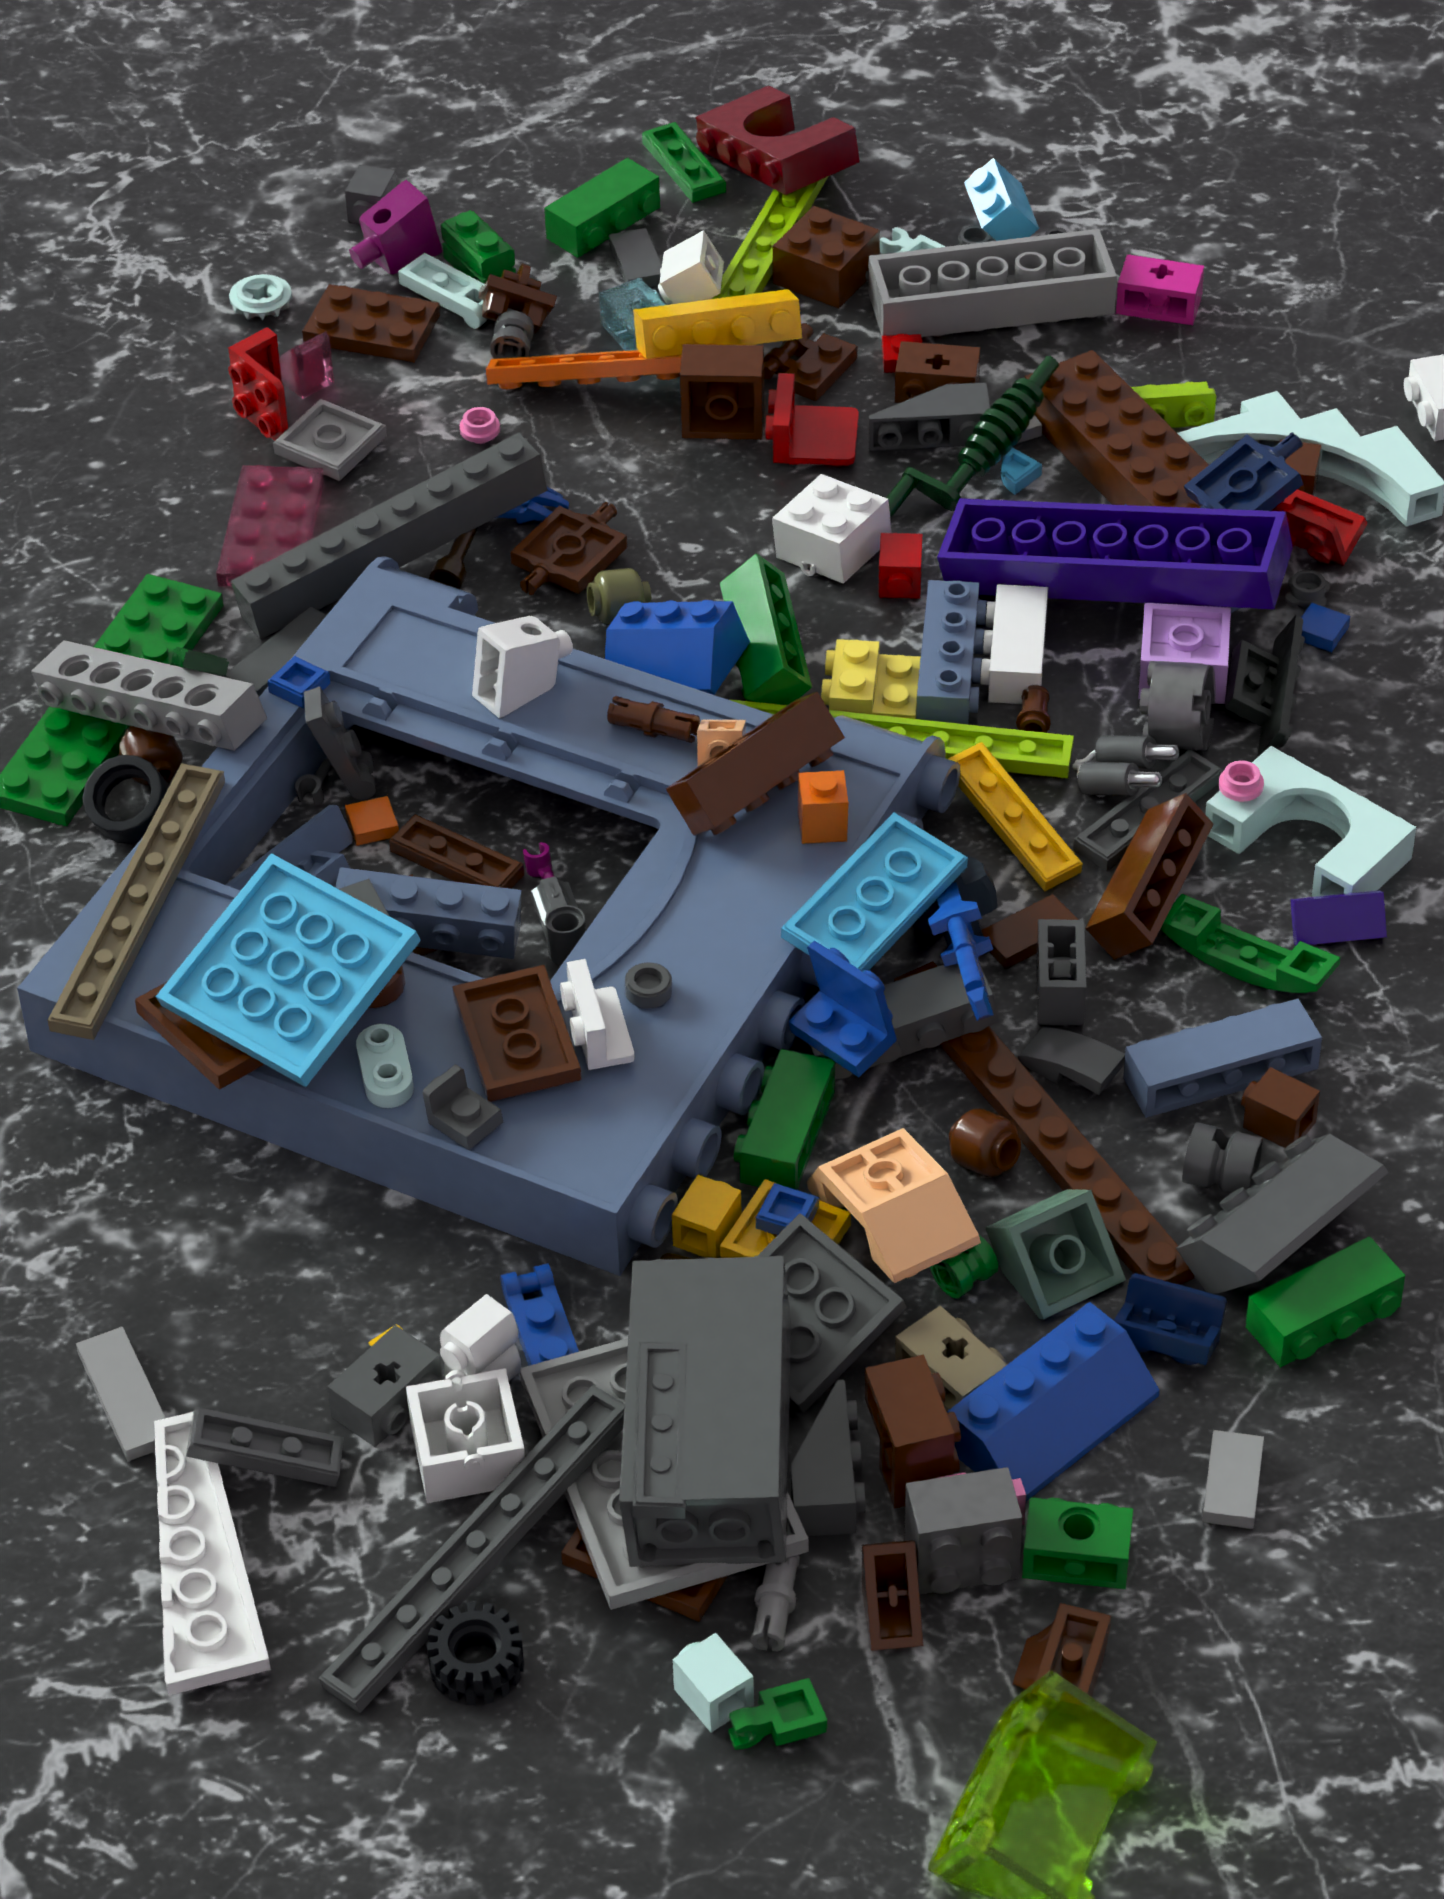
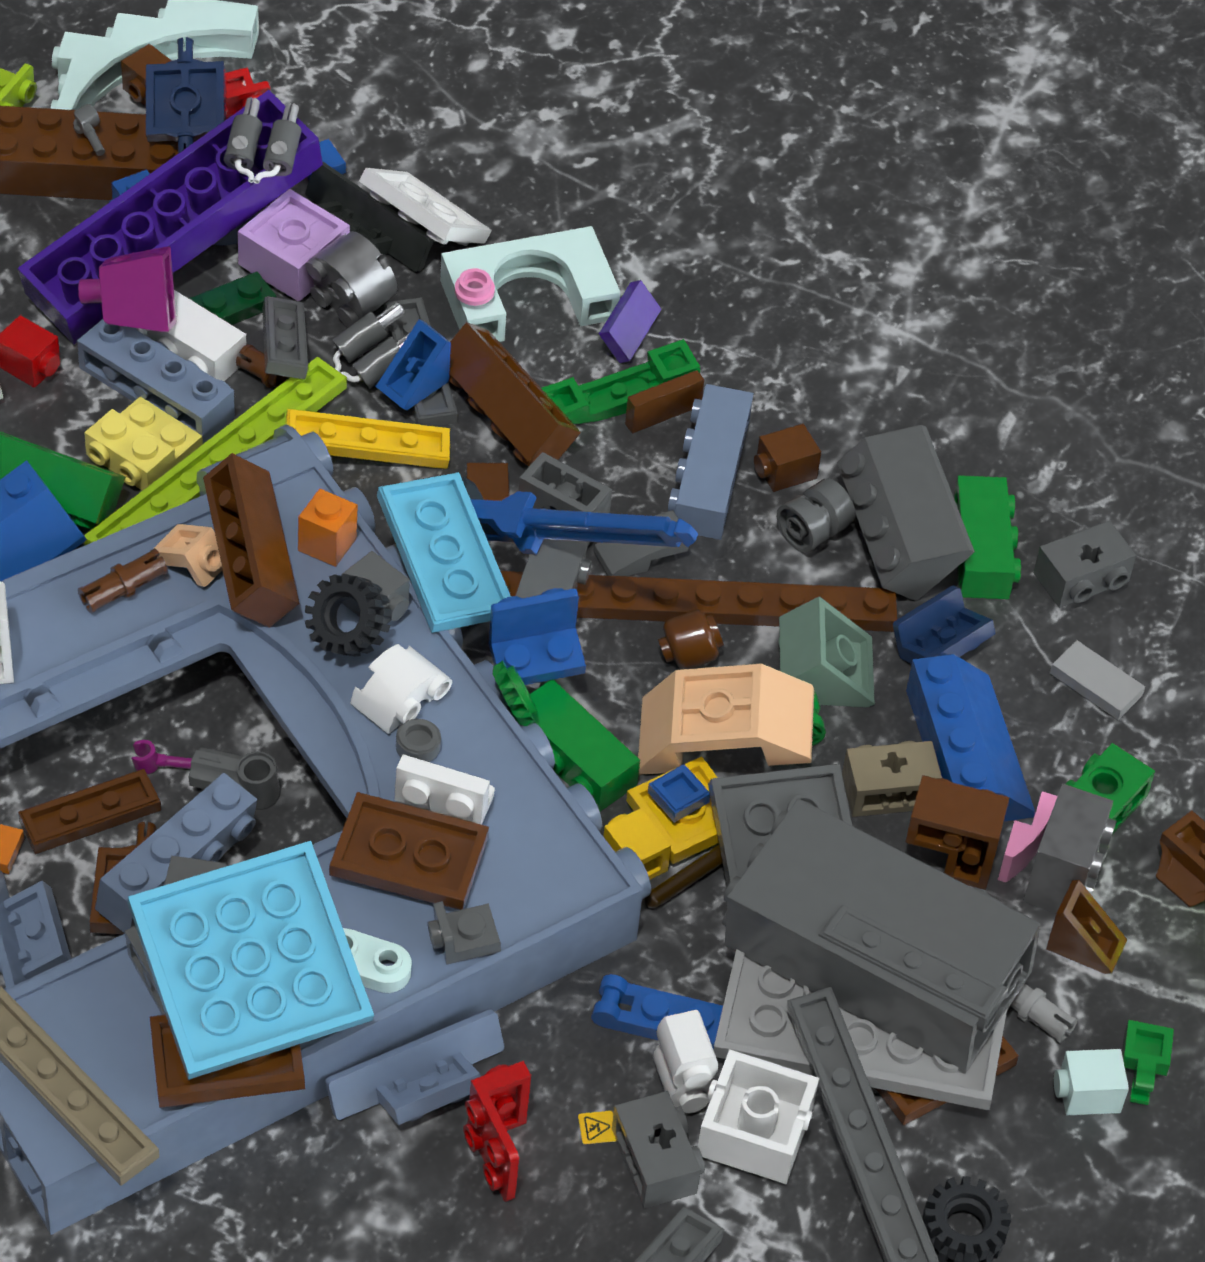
camera: 65 degrees left, 5 degrees up
(314, 1243) = (495, 1106): none -> red bracket
(346, 1189) = (420, 1073): none -> sand blue bracket
(698, 937) = (398, 687): none -> white cylinder
(725, 861) = (325, 615): none -> black tyre
(772, 1047) = (515, 693): none -> green gear
(782, 872) = (391, 580): none -> dark grey brick
(993, 572) = (134, 290): none -> magenta torso
(1072, 704) = (284, 337): none -> dark grey tile
(1092, 659) = (236, 299): none -> dark green plate
(1114, 800) = (418, 367): none -> blue slope
(1163, 445) = (85, 120): none -> dark grey hand
(1215, 542) = (281, 145): none -> dark grey piece
(1256, 985) = (663, 401): none -> reddish brown tile
(1324, 711) = (424, 206): none -> white plate
(1368, 1397) = (1084, 564): none -> dark grey brick

